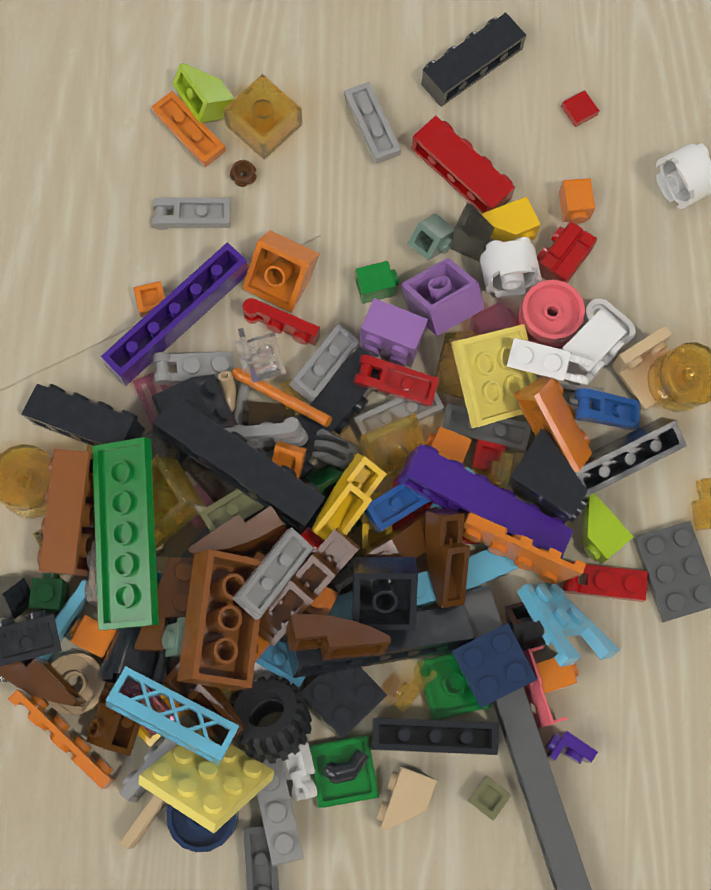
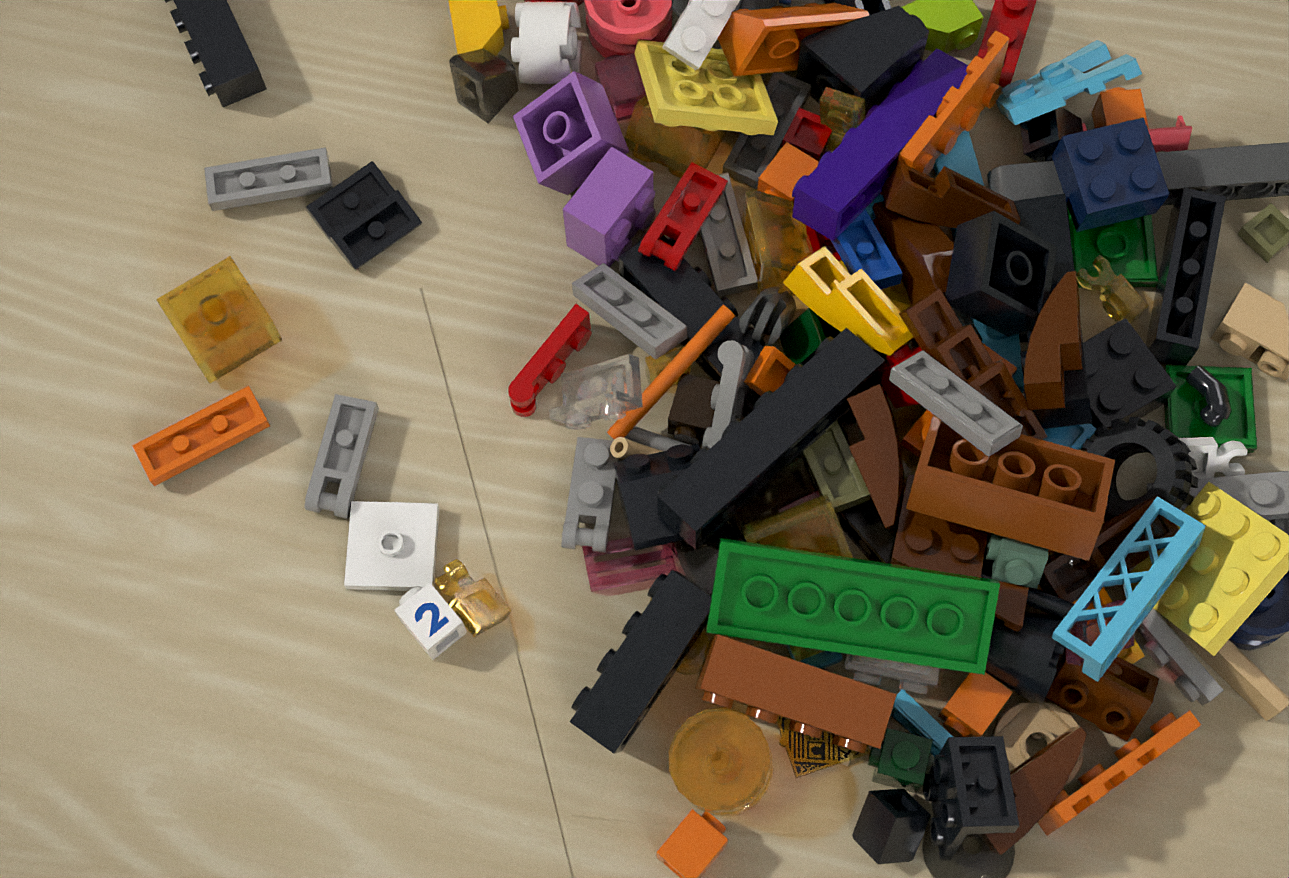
camera: 70 degrees left, 5 degrees down
(92, 289) = (430, 619): none -> white brick
(108, 314) = (472, 601): none -> clear yellow plate
(139, 257) = (391, 545): none -> white plate
(148, 296) = (465, 538): orange plate -> none
(175, 314) = (506, 501): dark purple brick -> none
(202, 93) = (152, 400): lime slope -> none
(240, 167) = (297, 361): reddish brown plate -> none
(280, 270) = (469, 346): orange slope -> none
(361, 186) = (363, 215): none -> black slope
(376, 281) = (520, 223): green brick -> none
(432, 237) = (474, 131): sand green brick -> none
(462, 166) = (374, 75): red brick -> none
(575, 748) = (1214, 123): dark purple bracket -> none

